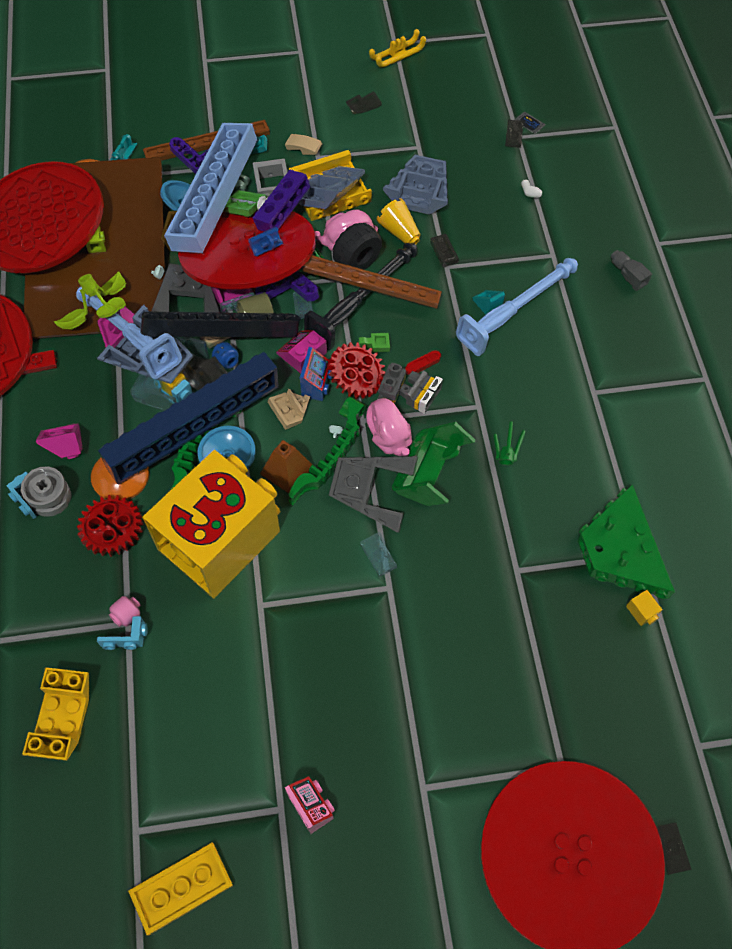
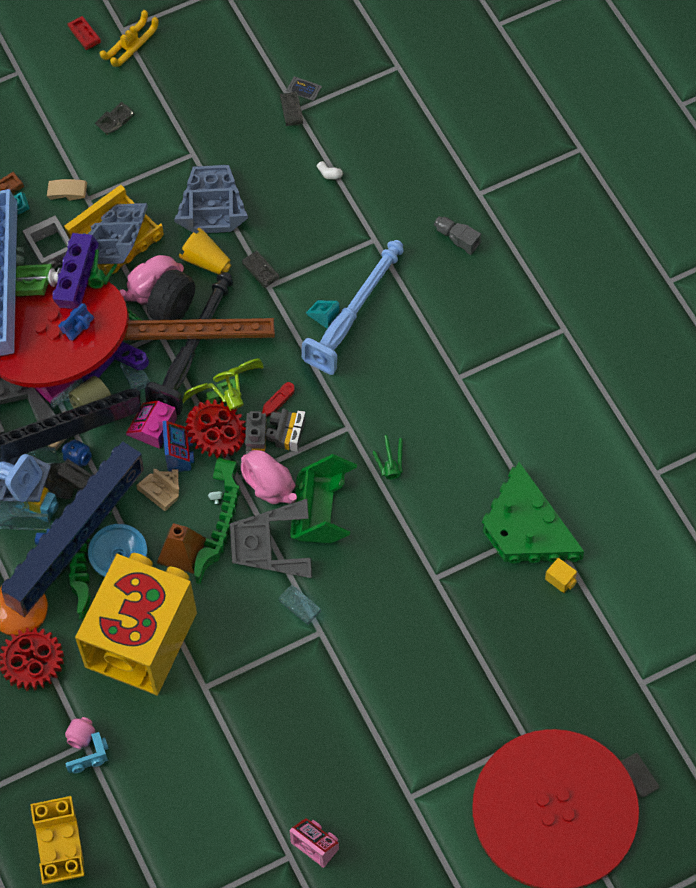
camera: 15 degrees left, 0 degrees up
(299, 213) = (97, 276): none -> green plant
(363, 35) = (84, 33): none -> red plate
(380, 346) = (232, 395): none -> lime plant

